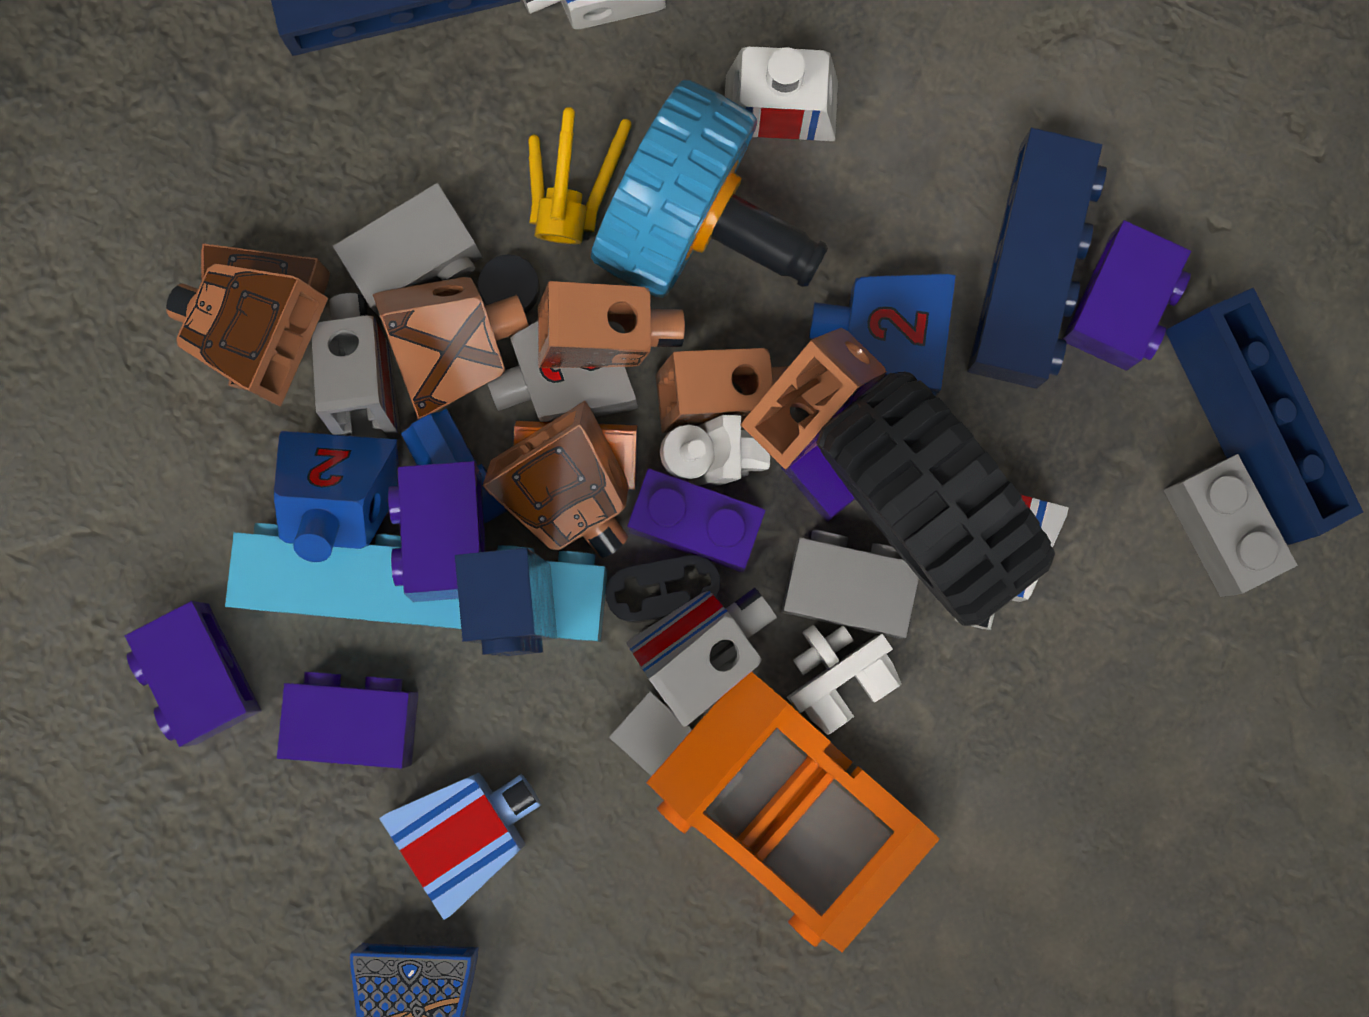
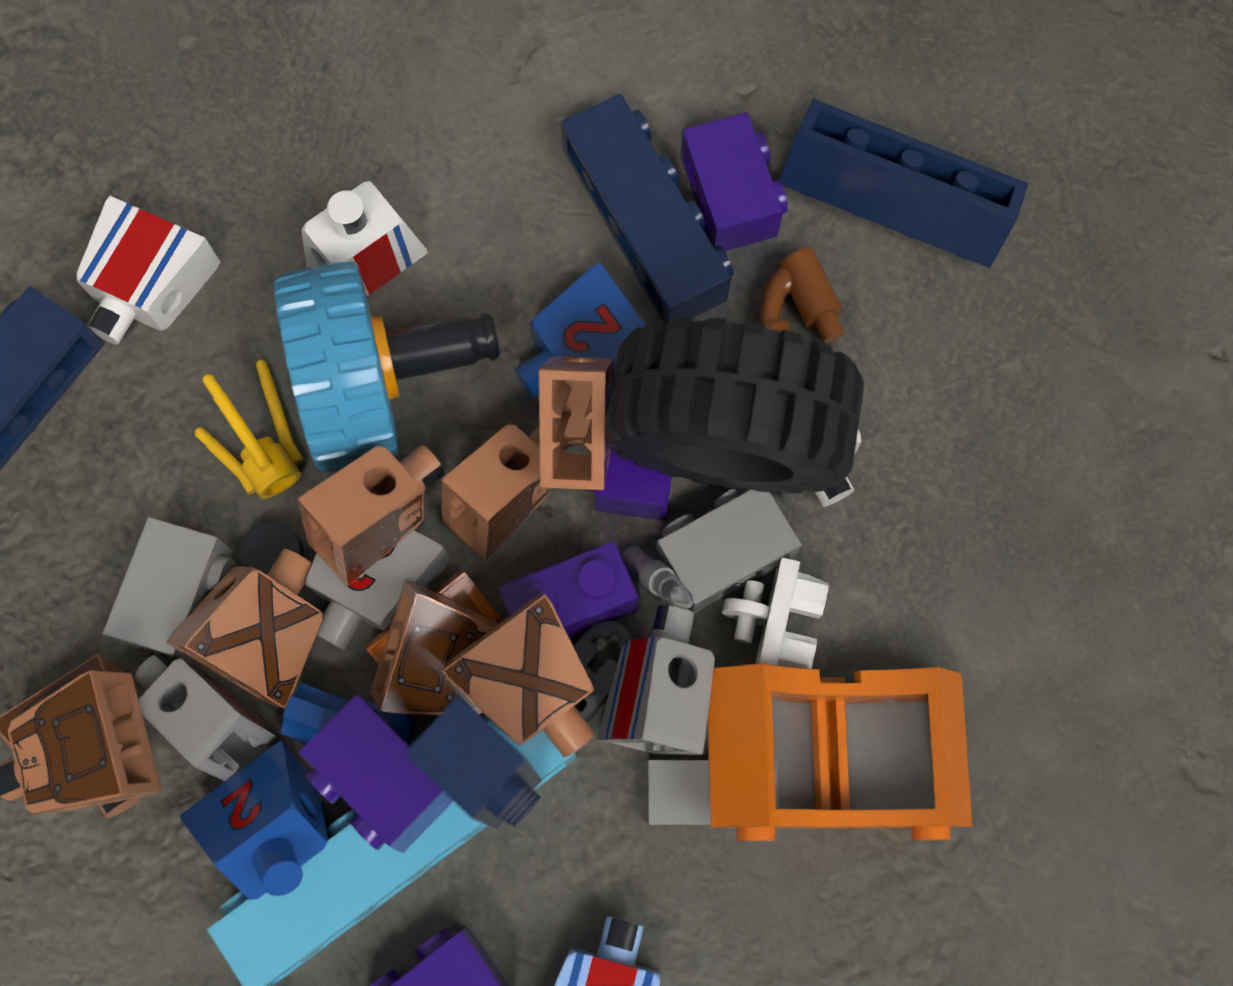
camera: 45 degrees left, 10 degrees down
(607, 556) = (527, 677): none -> nougat torso
(712, 452) = (538, 531): white hips -> none
(775, 564) = (657, 577): none -> piece
(1105, 449) = (811, 291): none -> dark orange plant
(1230, 527) = (949, 274): light grey brick -> none

